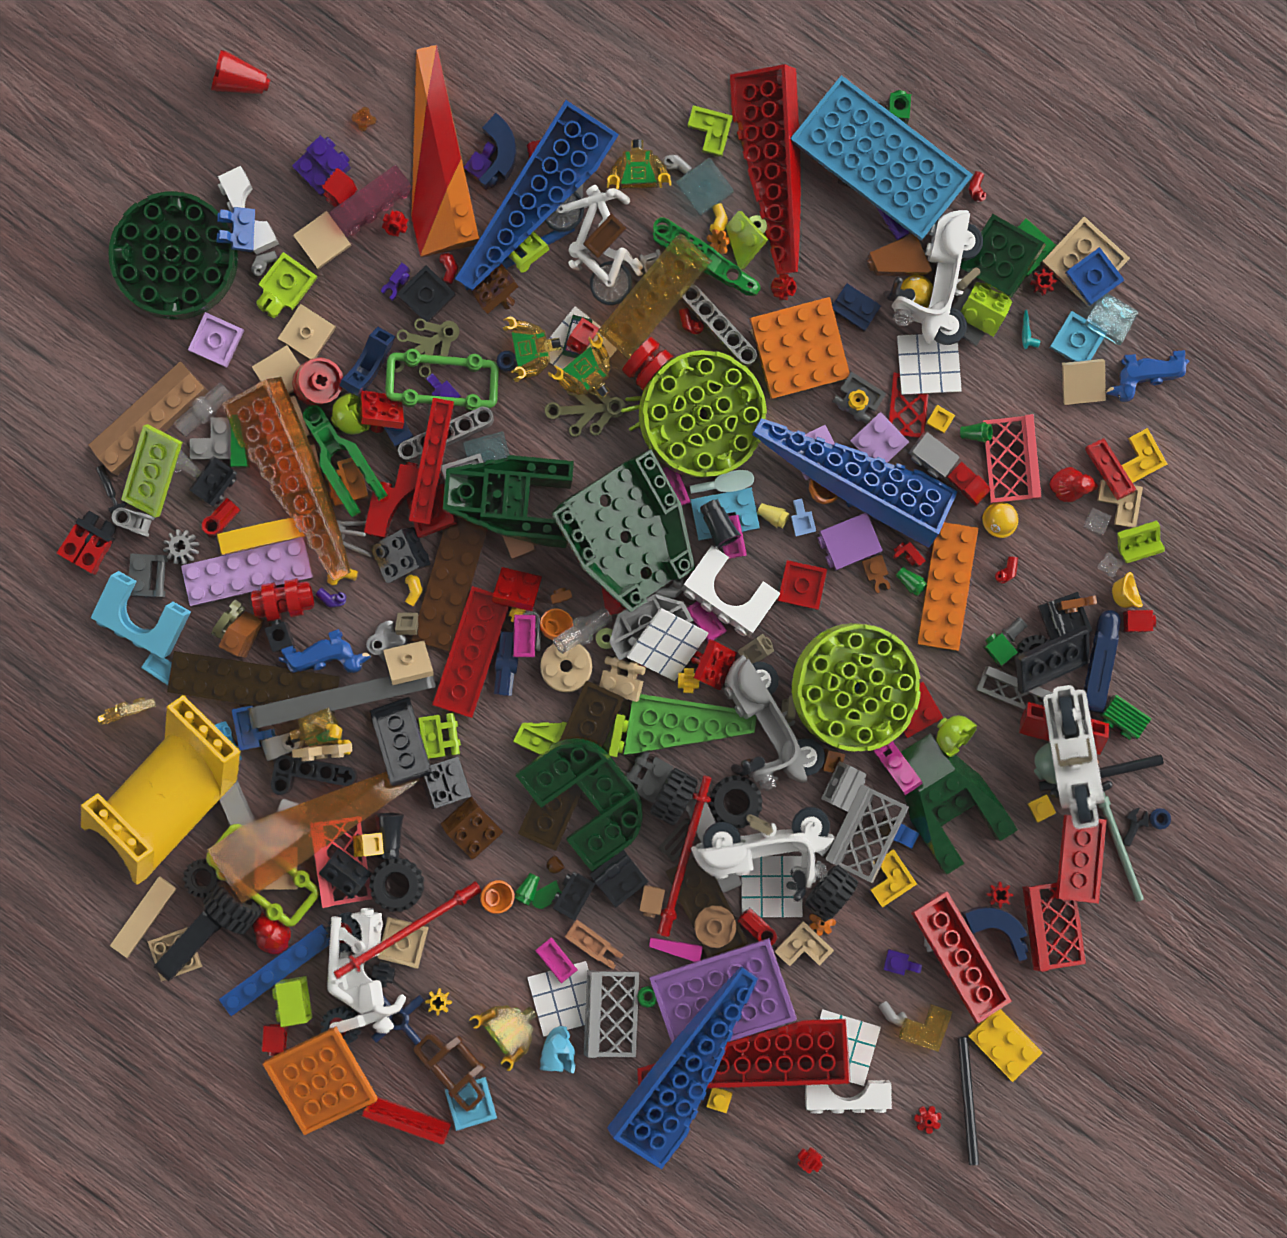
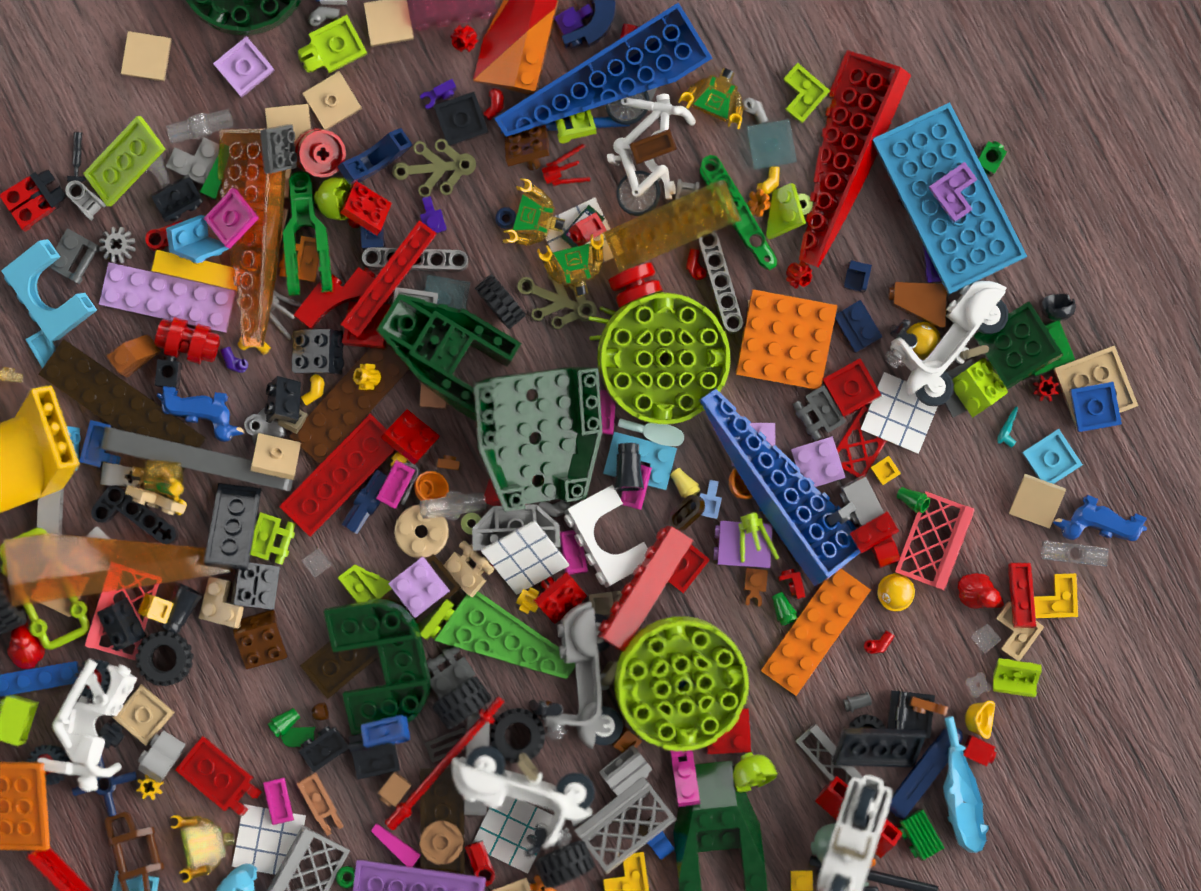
camera: 20 degrees right, 0 degrees up
(126, 372) = (146, 56): none -> tan tile
(157, 408) = (157, 104): medium nougat slope -> none
(227, 619) = (127, 334): olive plate -> none
(244, 511) = (192, 240): none -> dark azure bracket
(268, 474) = (231, 218): none -> dark pink plate
(280, 394) = (278, 148): none -> dark grey tile
(390, 611) = (283, 400): none -> black bracket
(413, 358) = (399, 210): bright green bar -> none
(419, 818) = (215, 607): none -> tan plate
(435, 971) = (161, 756): none -> light grey brick
(453, 555) = (366, 376): none -> yellow gear
(459, 898) = (216, 699): red bar -> none
(488, 737) = (316, 562): none -> clear plate
(493, 964) = (217, 776): none -> red tile
(497, 897) = (251, 715): orange piece -> none
(528, 302) = (553, 173): none -> red plant
(537, 434) = (500, 301): none -> black tyre
(587, 715) = (419, 587): none -> lavender plate
(623, 851) = (389, 730): none -> blue plate
(783, 620) = (644, 588): none -> brick
(787, 537) = (689, 509): none -> dark brown plate
(834, 264) = (857, 276): none -> dark blue panel
(849, 520) = (751, 525): none -> lime plant
(863, 400) = (815, 421): yellow plate -> none
(876, 361) = (852, 387): none -> red plate
(878, 150) = (948, 191): none -> medium lavender plate
(922, 474) = (842, 514): none -> dark grey plate
(958, 476) = (874, 532): none -> red plate
(974, 187) = (1024, 269): red arm -> none
(999, 648) = (835, 712): green brick -> none
(1020, 206) = (1058, 307): none -> black hair
(1111, 318) = (1092, 454): clear light blue plate -> none
(1138, 659) = (959, 787): none -> medium azure piece
(1149, 407) = (1061, 552): none -> clear piece

